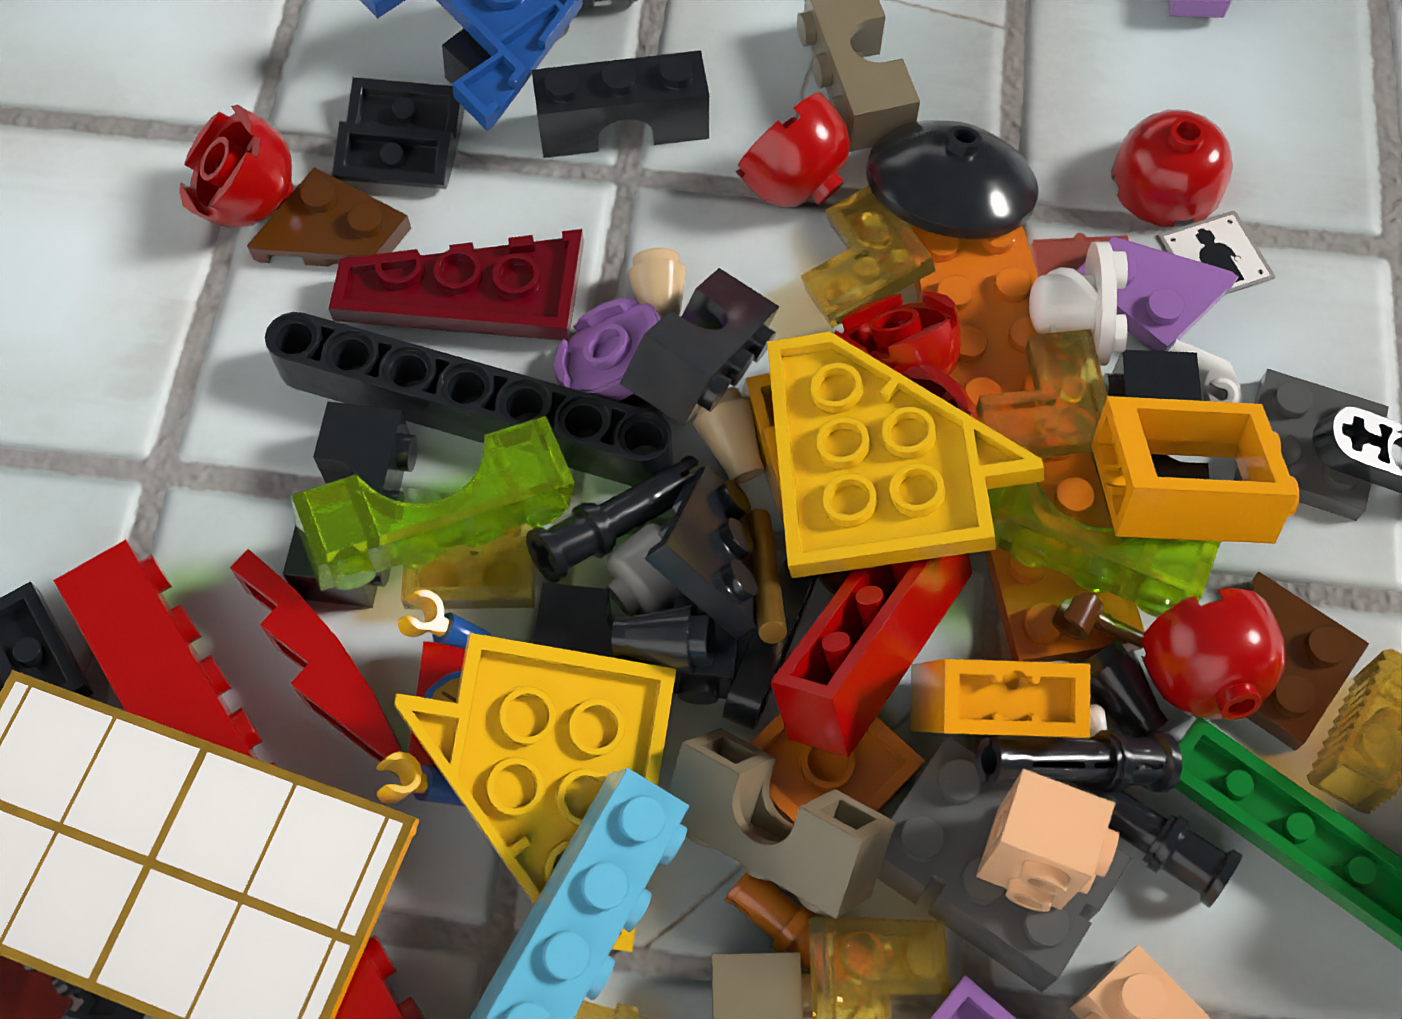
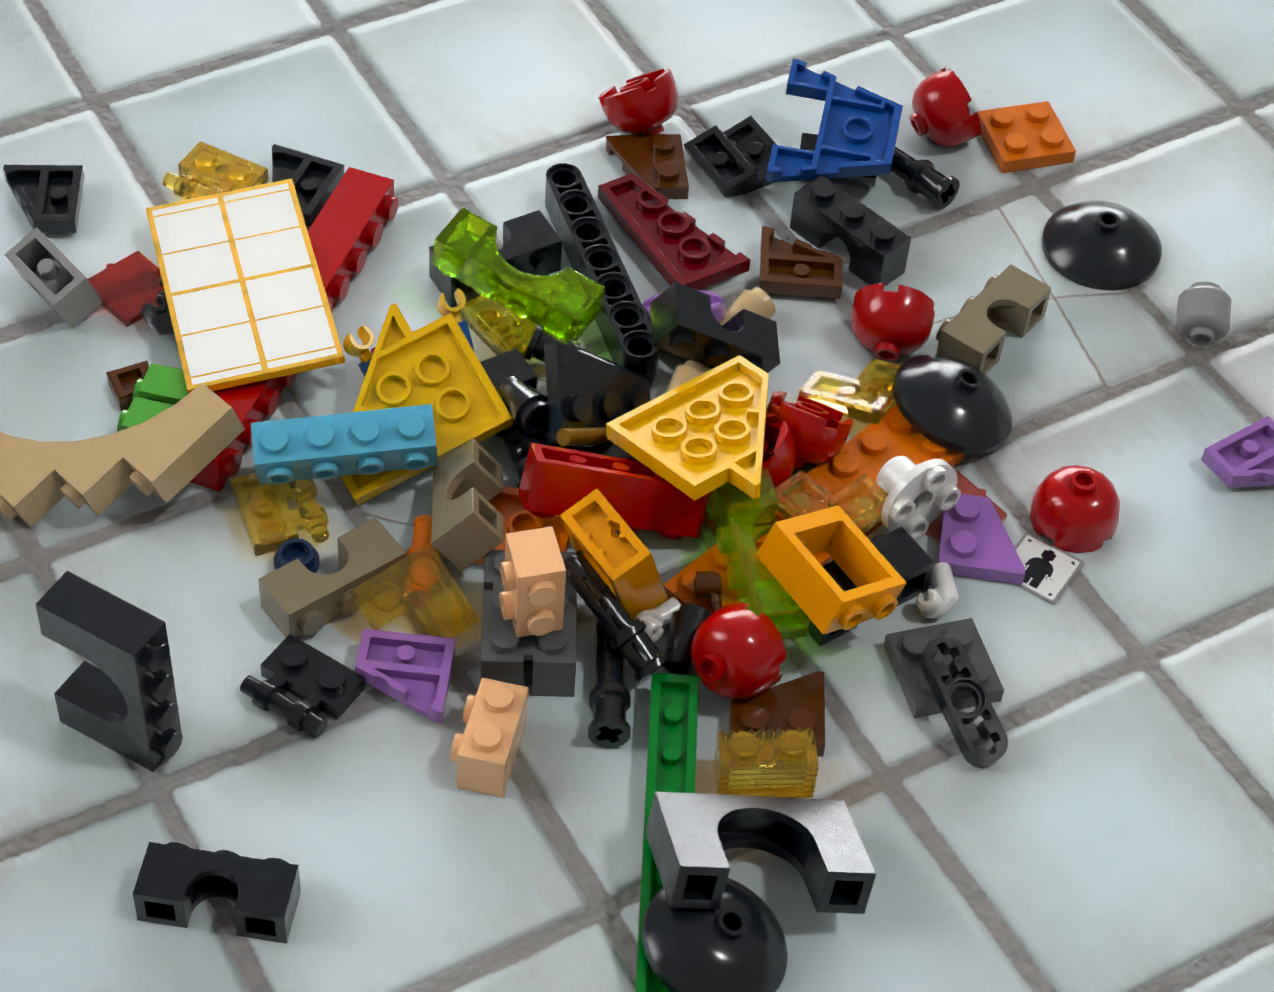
camera: 50 degrees right, 15 degrees down
(329, 677) = (407, 283): red slope -> none
(624, 191) = (797, 268): none -> reddish brown wing

